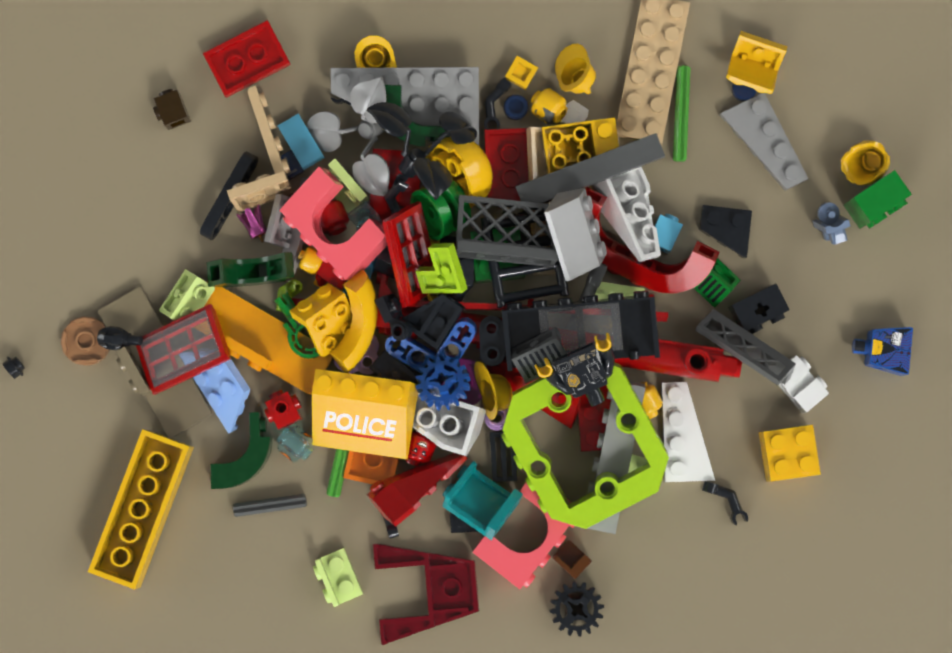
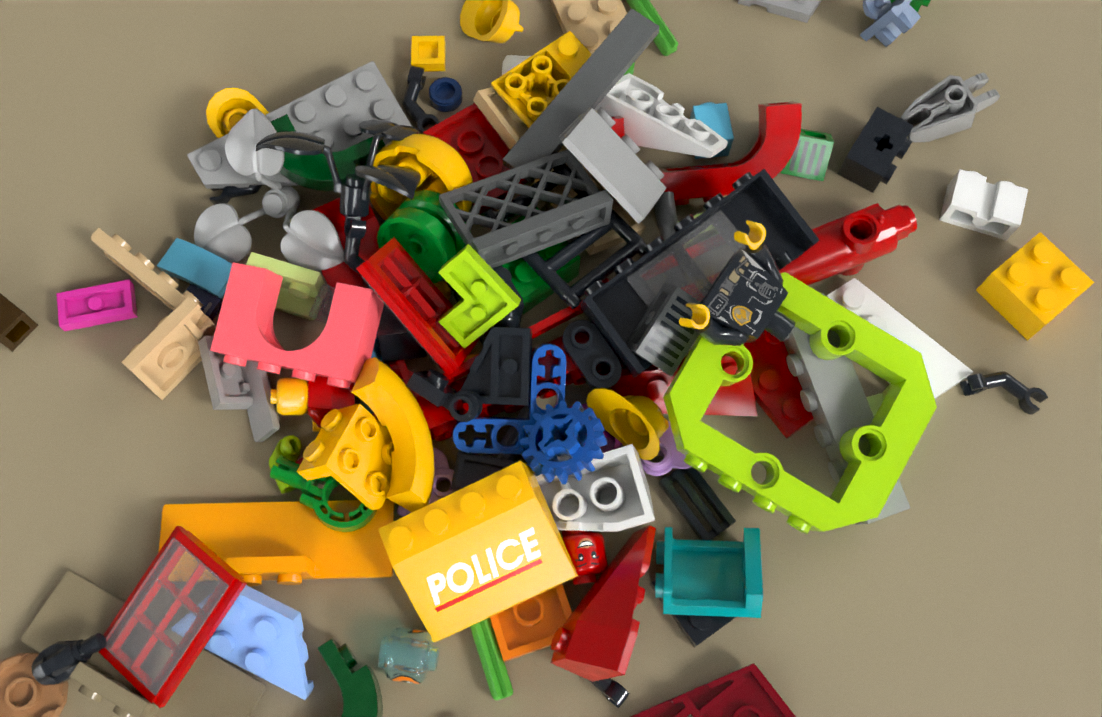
camera: 35 degrees left, 15 degrees down
(186, 296) = (141, 538): yellowish green bracket -> none
(223, 205) = (133, 395): black beam -> none
(230, 131) = (96, 305): none -> dark pink plate
(246, 59) = (72, 209): red plate -> none
(250, 271) = (210, 466): dark green arch -> none
(253, 224) = (193, 401): flat silver piece -> none
(289, 416) = (374, 625): red brick -> none
(334, 218) = (293, 328): red head -> none
(519, 566) = (819, 632): coral arch -> none
(548, 106) = (482, 67): yellow head -> none
(568, 617) = (926, 659): black gear -> none
(572, 559) = (877, 582): reddish brown panel -> none
(728, 227) = (773, 84): black wing -> none
(746, 347) = (902, 187): dark grey fence -> none
(824, 309) = (948, 107): none -> light grey hinge
(886, 349) = (1048, 114): torso -> none

